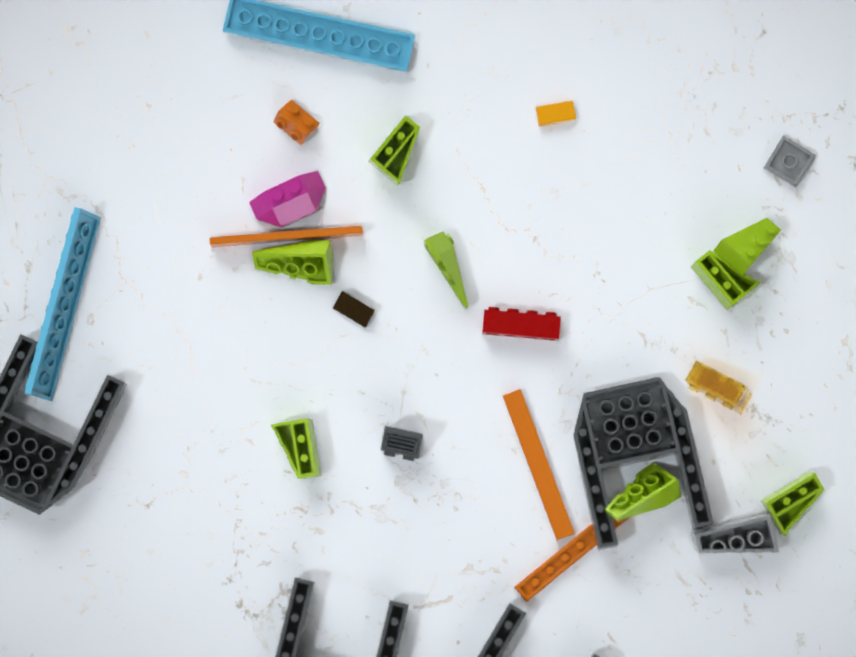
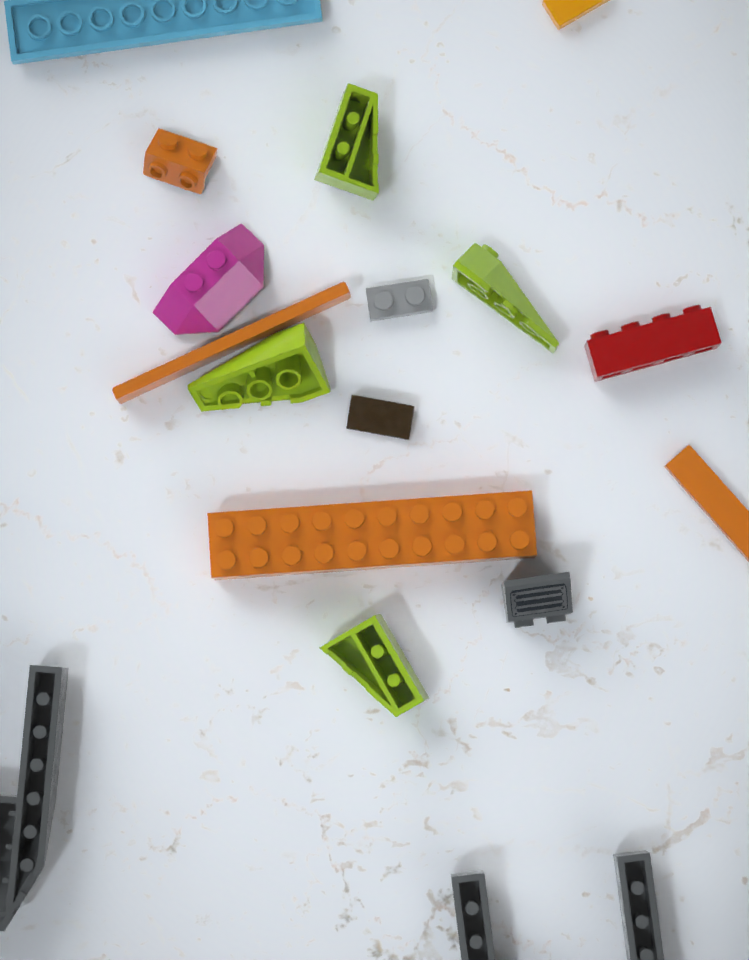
camera: 15 degrees left, 0 degrees up
(323, 373) = (372, 535): none -> orange brick
(389, 247) = (399, 300): none -> light grey plate

